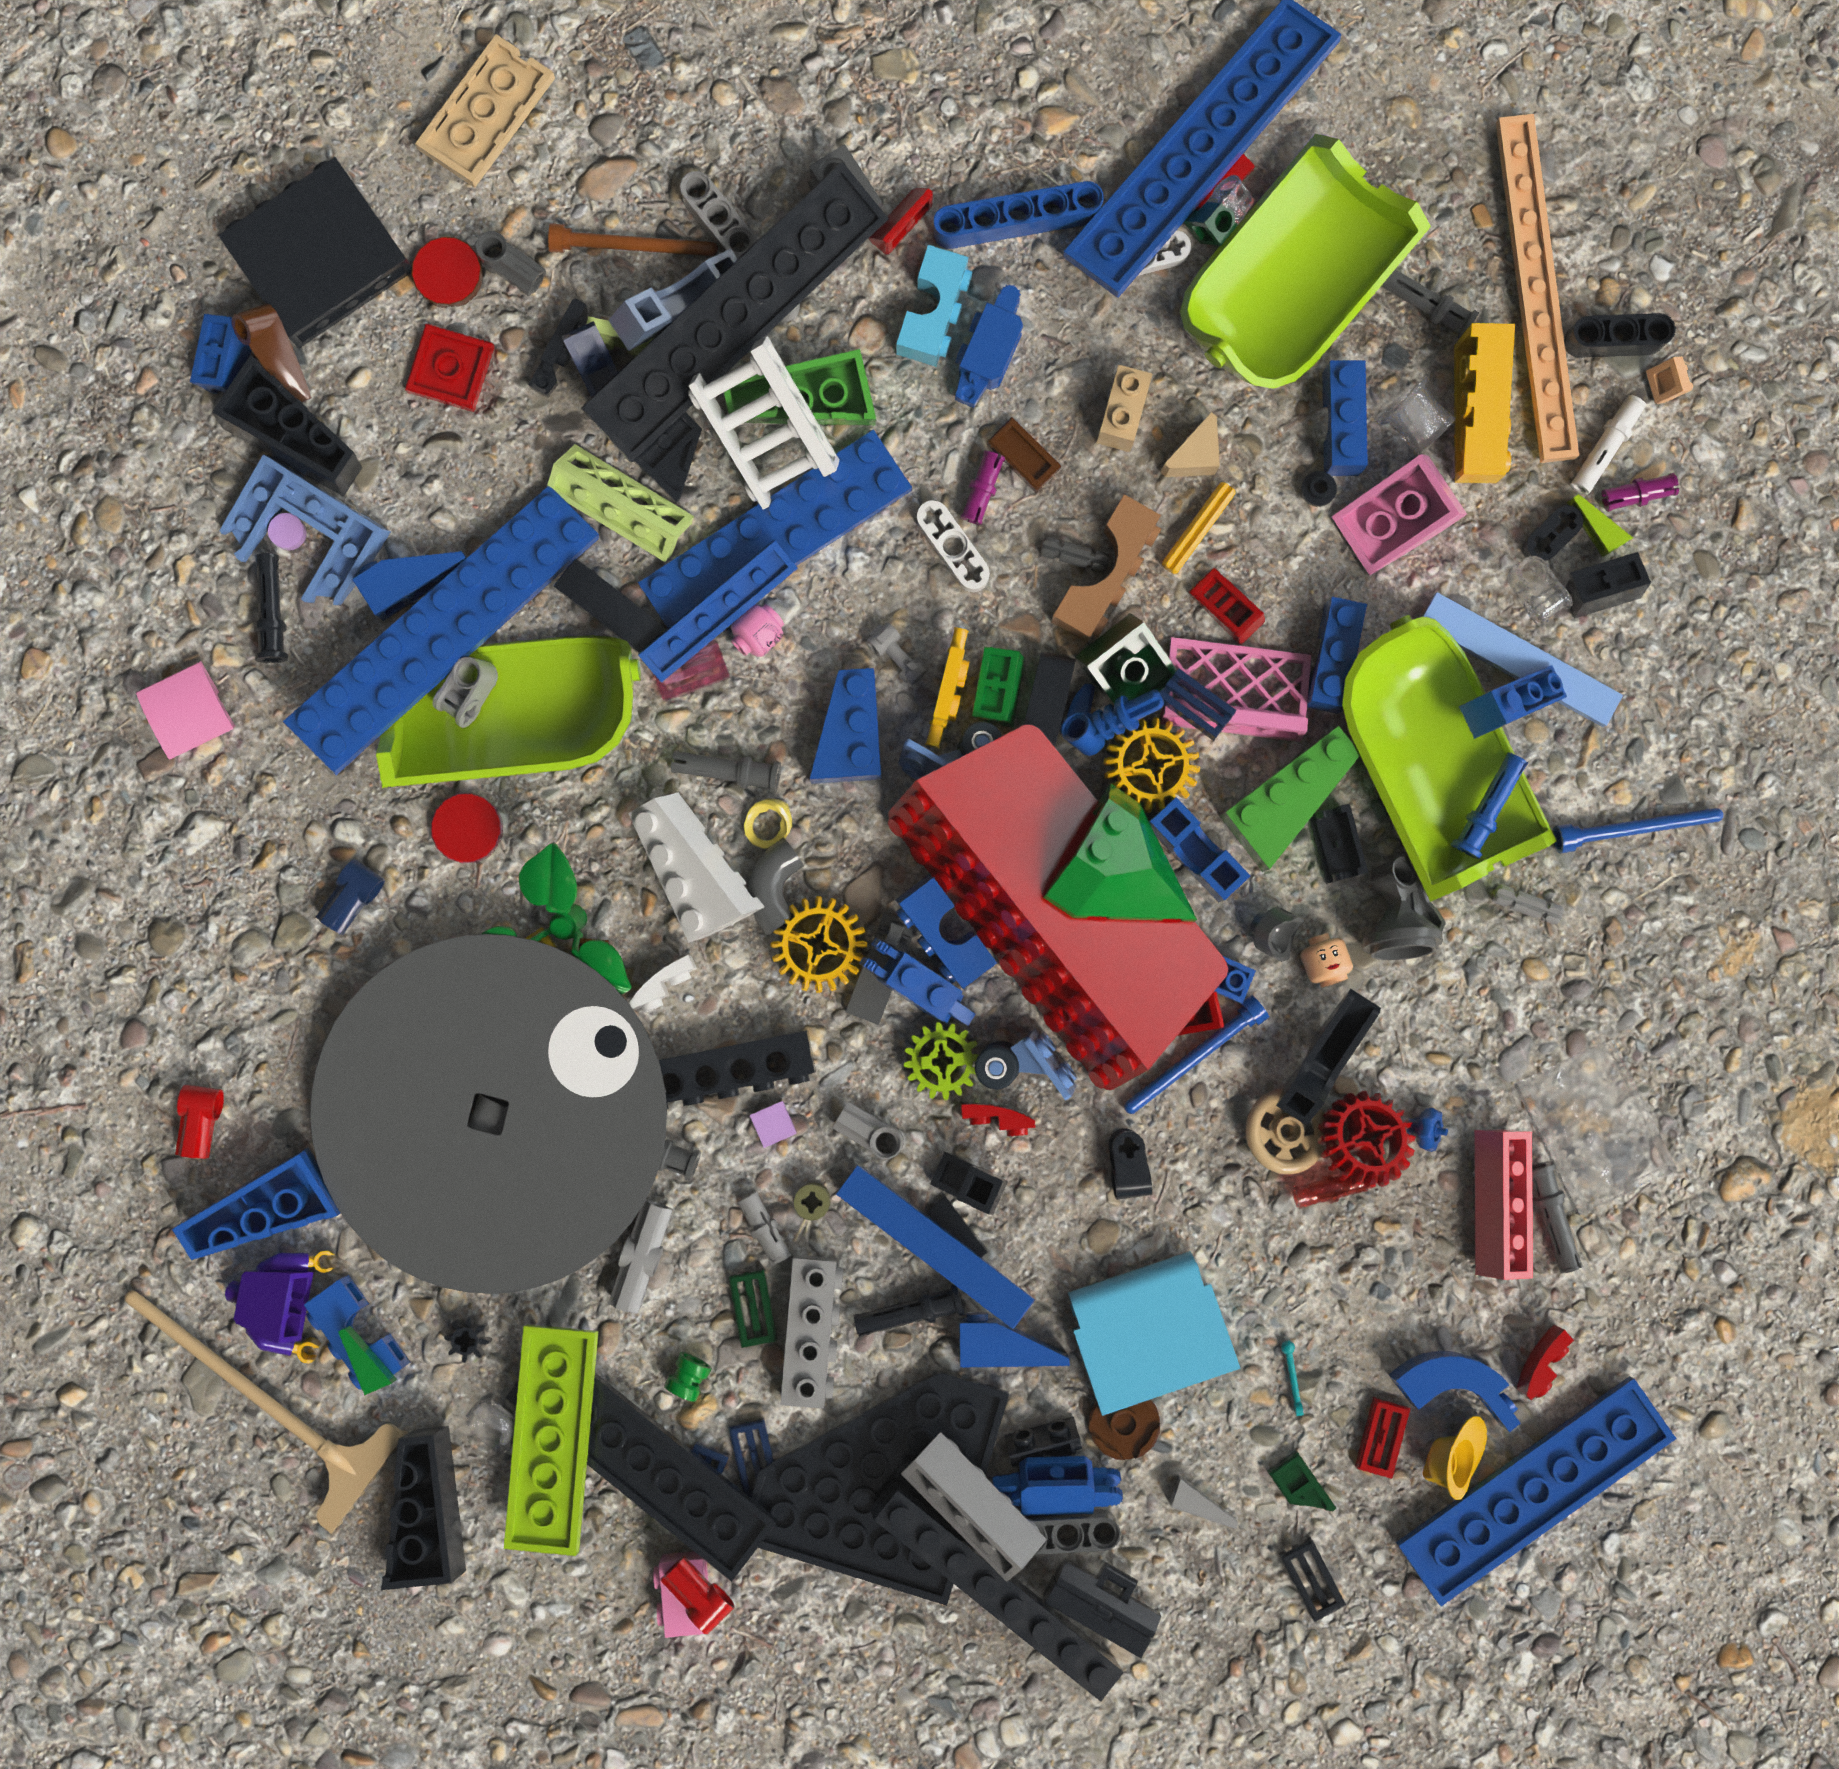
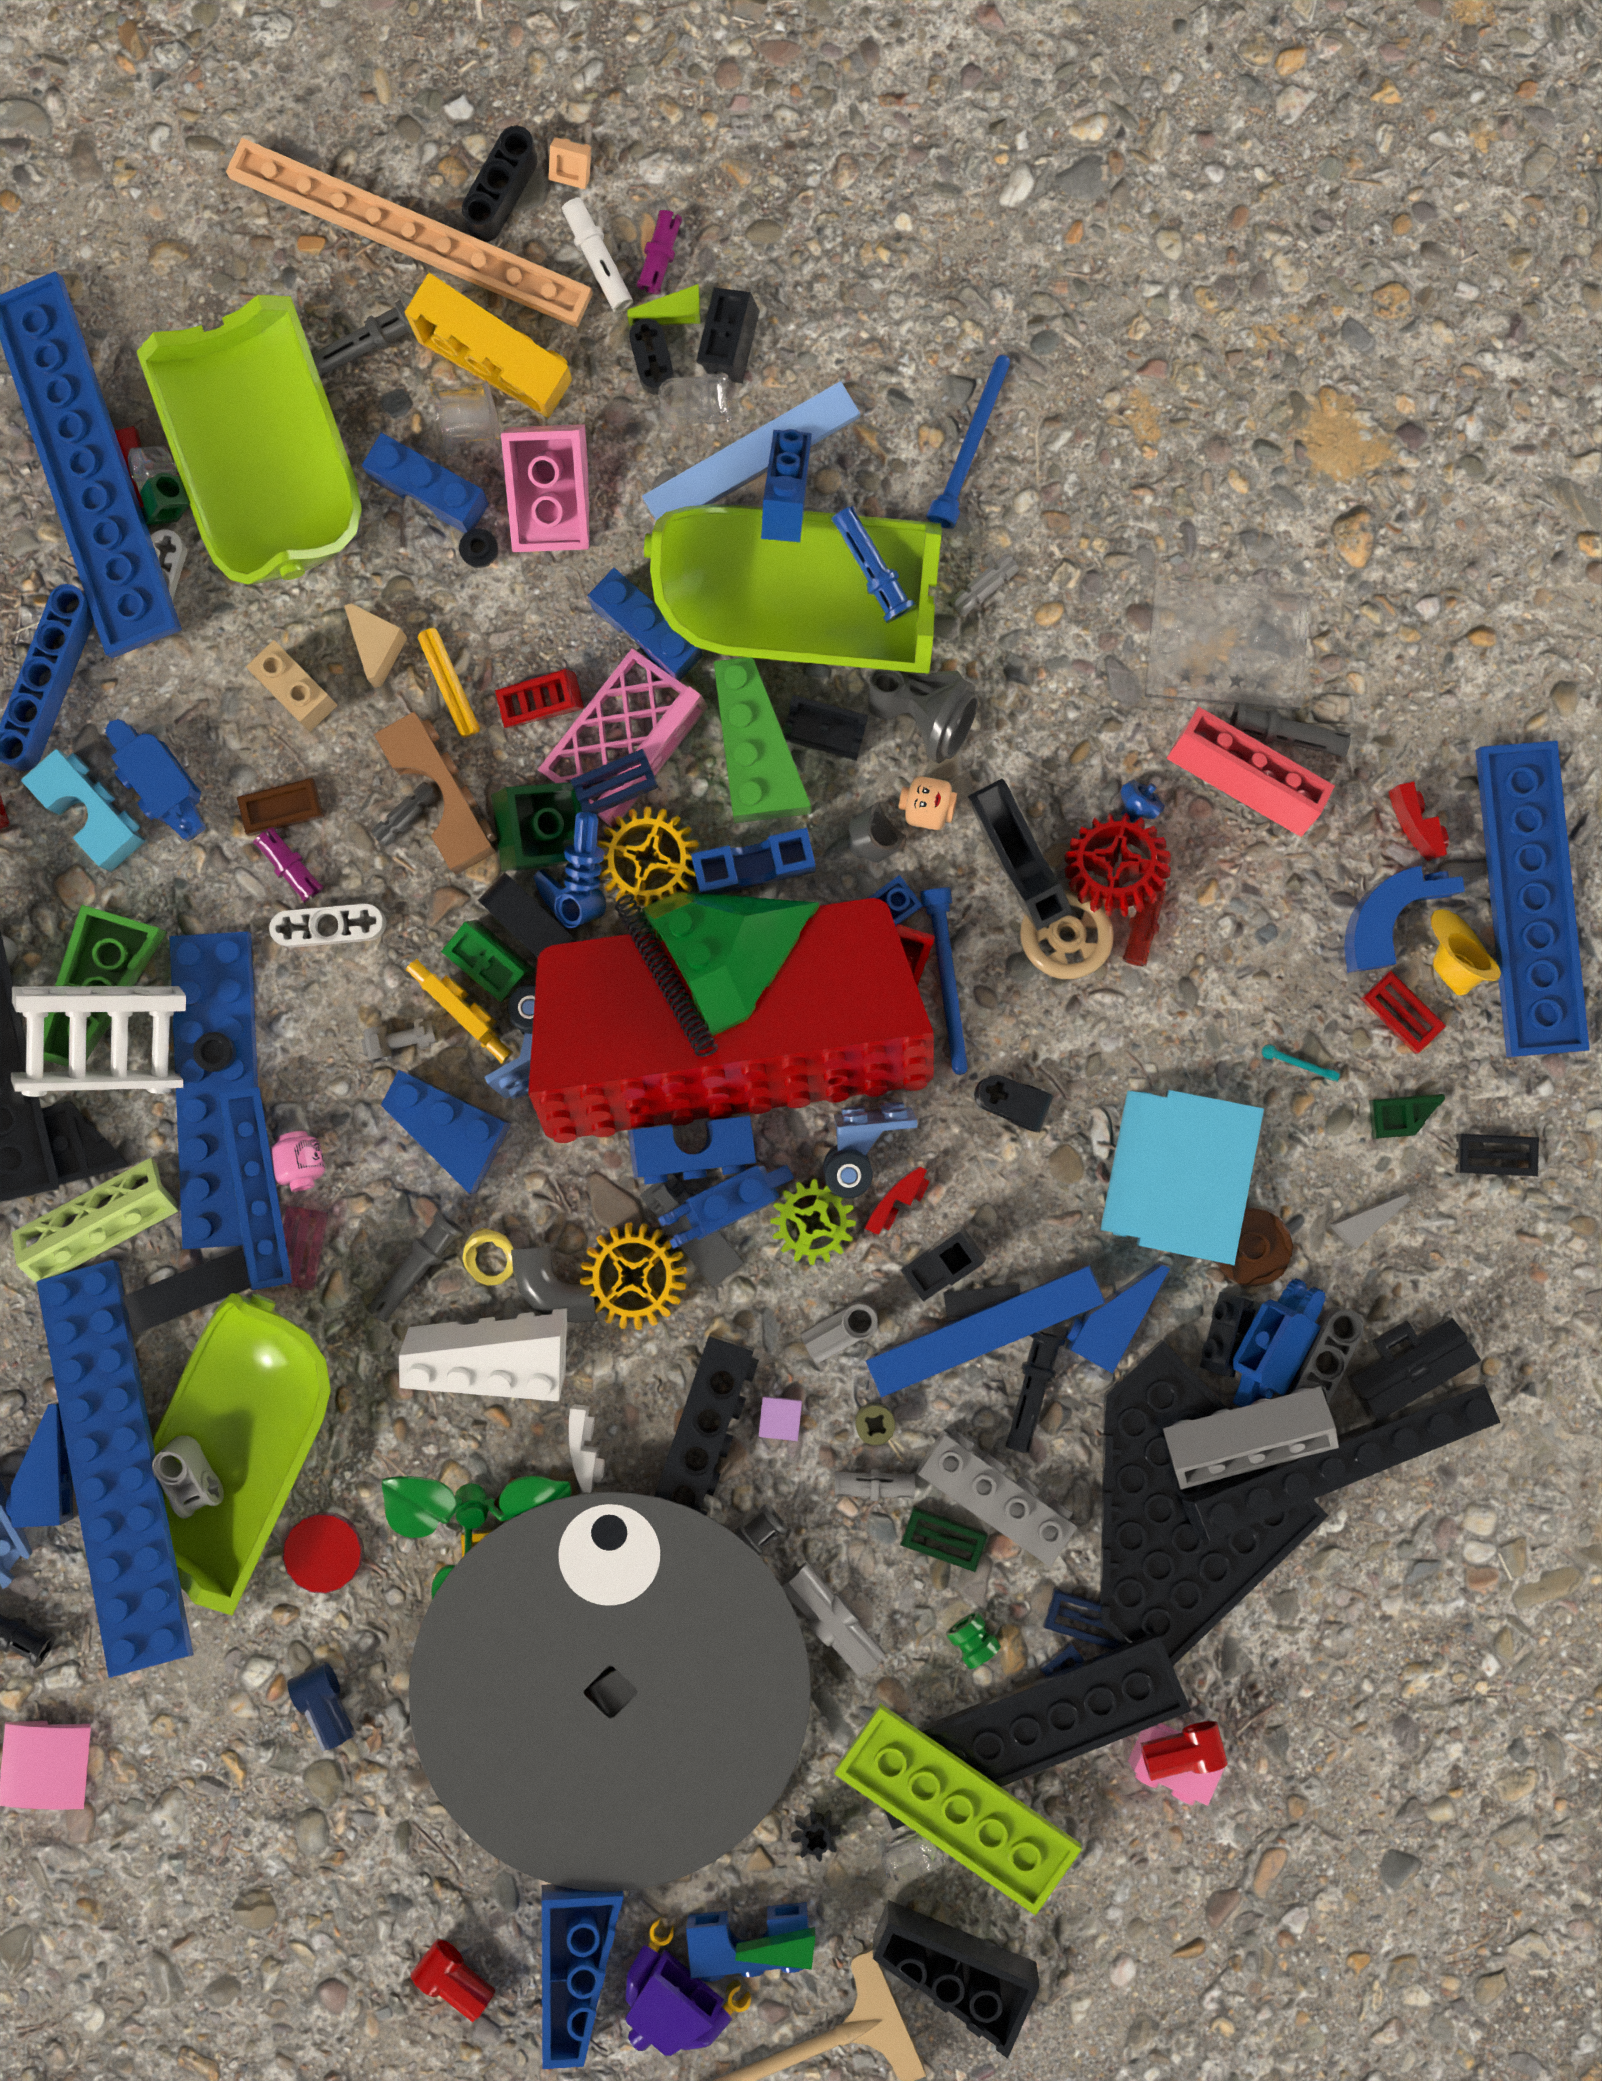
camera: 60 degrees left, 0 degrees up
(804, 517) = (214, 1052): none -> black tile
(1066, 834) = (661, 972): none -> black piece

